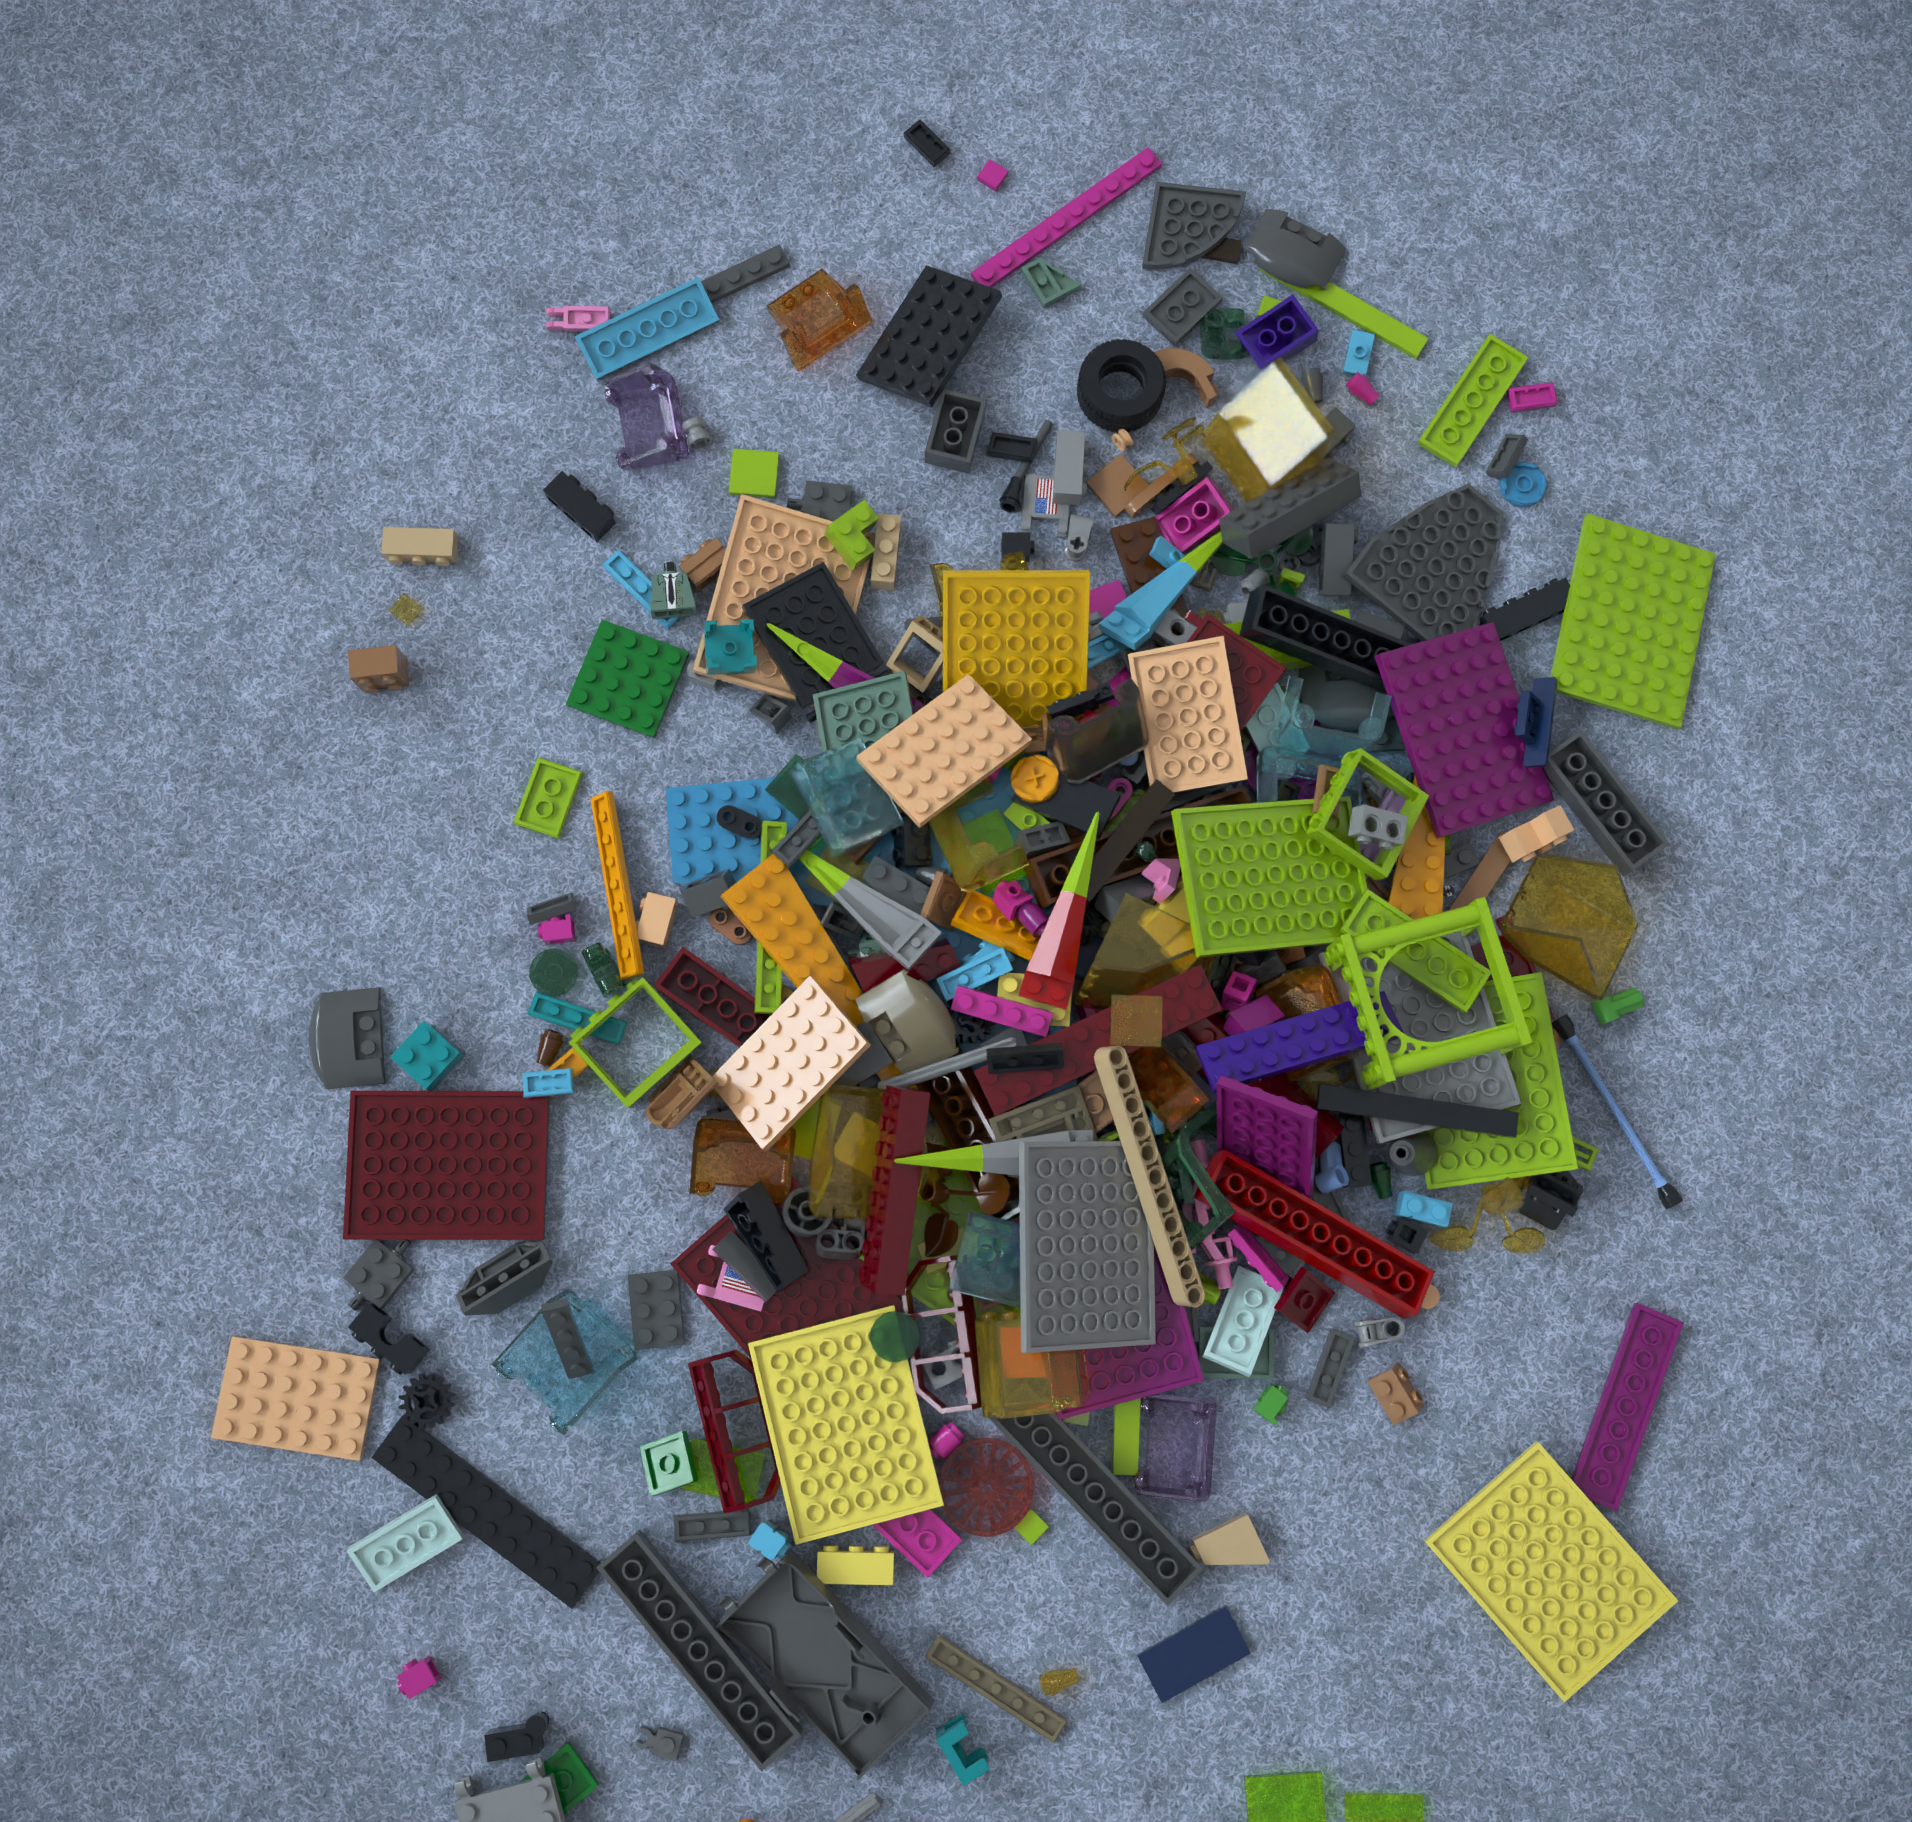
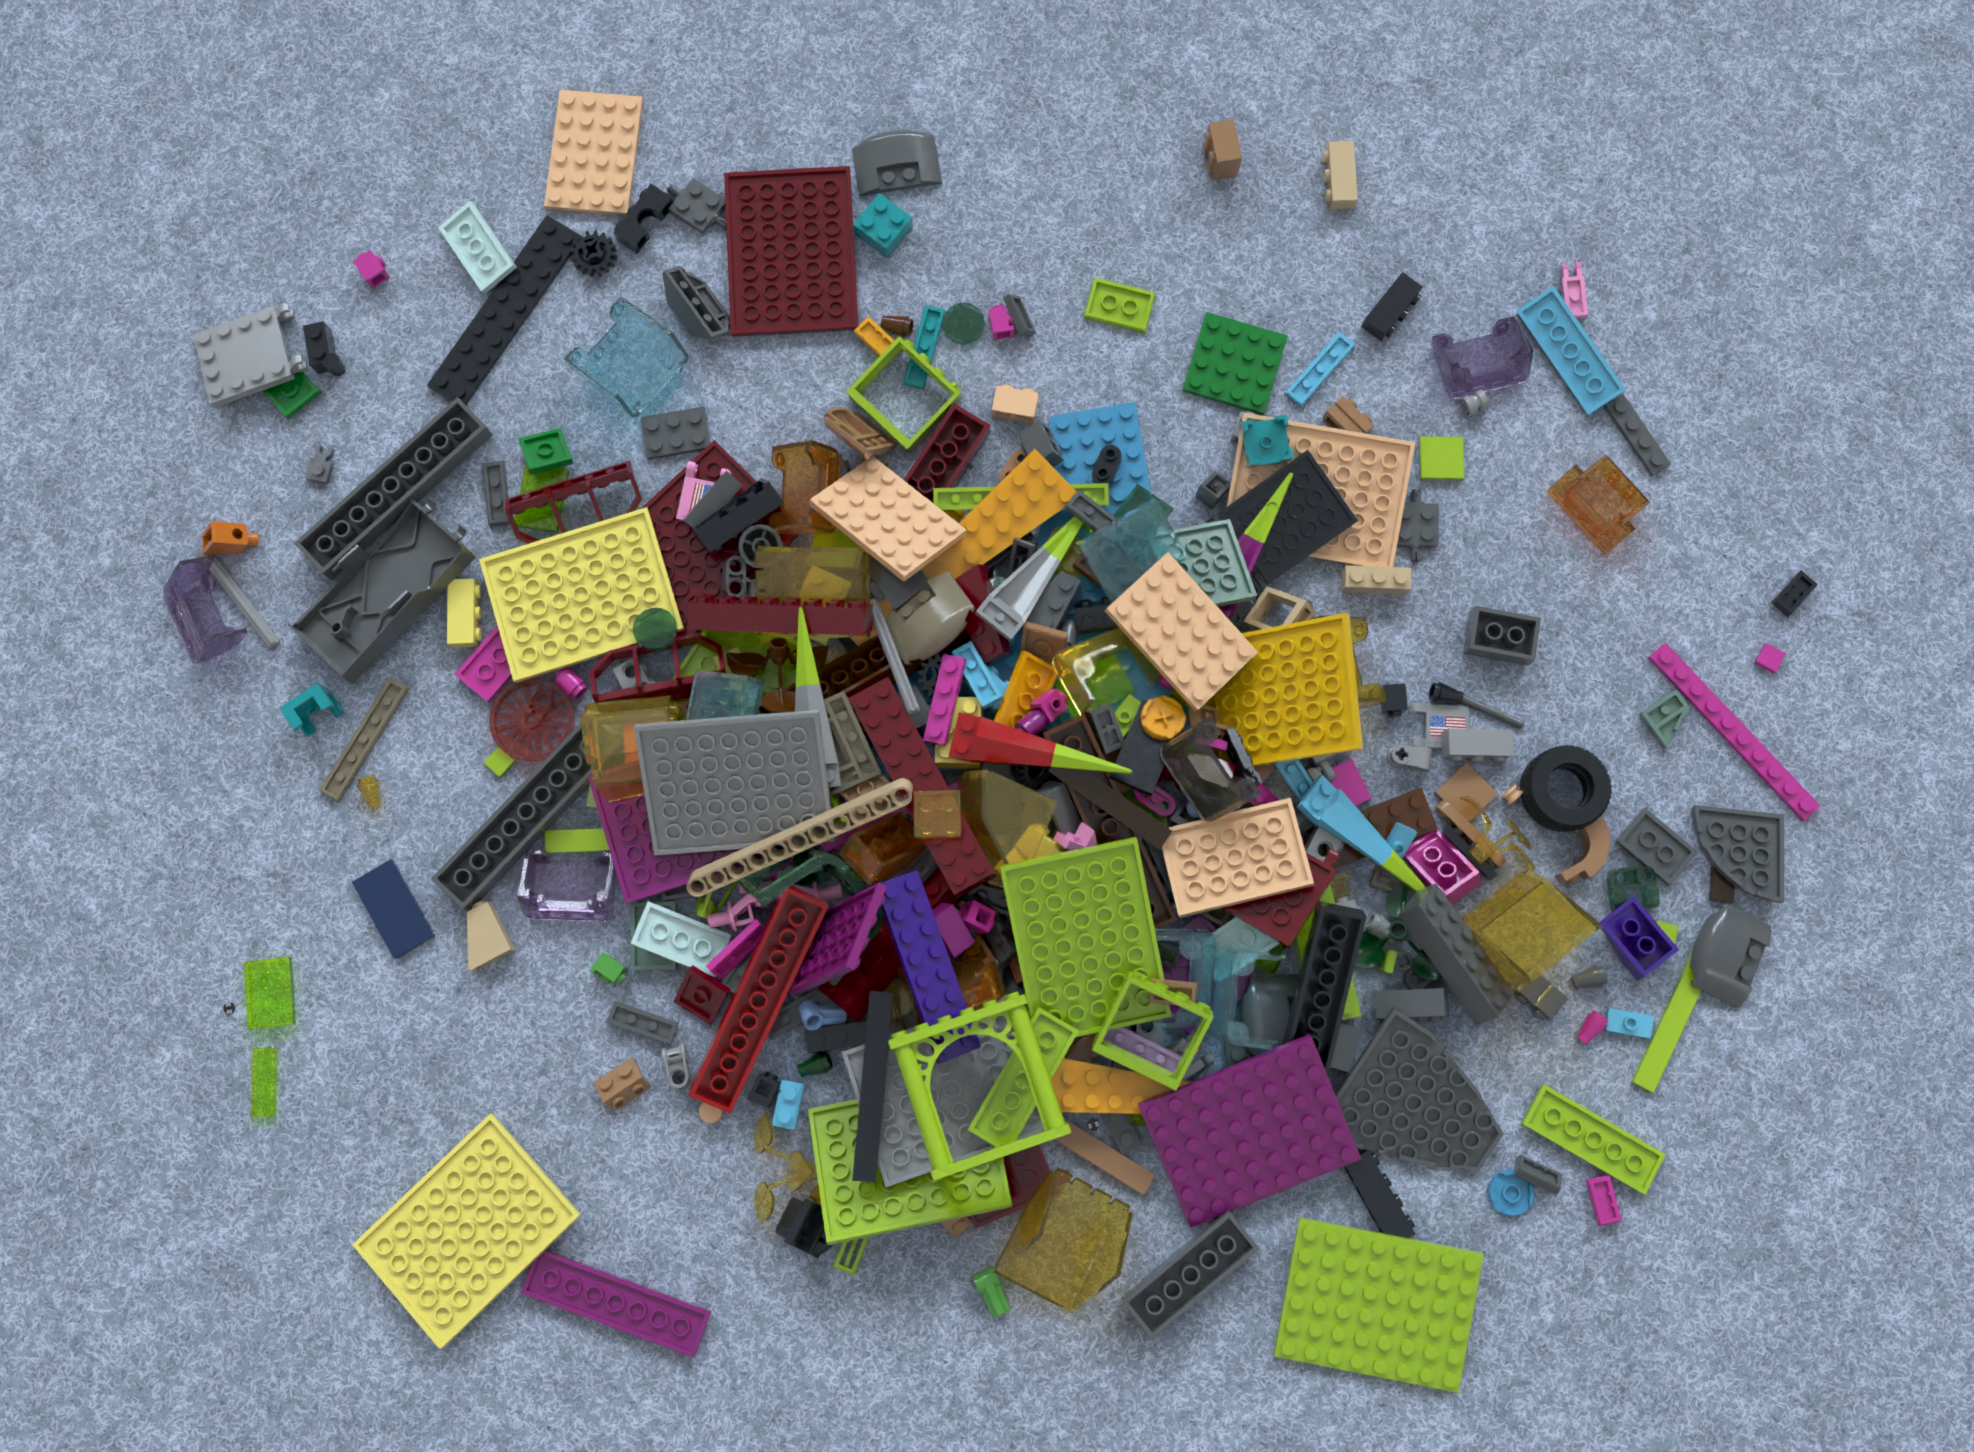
camera: 90 degrees right, 0 degrees up
(405, 609) = (1281, 170): clear yellow tile -> none
(548, 1083) = (864, 324): medium azure plate -> none
(567, 1338) = (644, 355): dark grey plate -> none
(603, 969) = (967, 363): clear green piece -> none
(617, 886) = (1043, 367): light orange tile -> none
(671, 594) = (1315, 391): sand green torso -> none
(770, 1540) = (482, 538): medium azure brick -> none
(848, 533) = (1391, 541): lime brick -> none
(929, 335) = (1594, 605): black plate -> none
(1012, 447) = (1492, 691): black tile -> none
(1025, 1058) = (898, 717): black plate -> none
(1146, 851) = (1101, 823): clear green plate -> none
(1377, 821) = (1141, 1036): light grey brick -> none
(1413, 1153) = (837, 1091): dark grey cone -> none
(1536, 721) = (1264, 1201): dark blue bracket -> none
(1537, 835) = (1152, 1208): light nougat brick -> none
(1667, 1193) = (814, 1342): light blue hose -> none

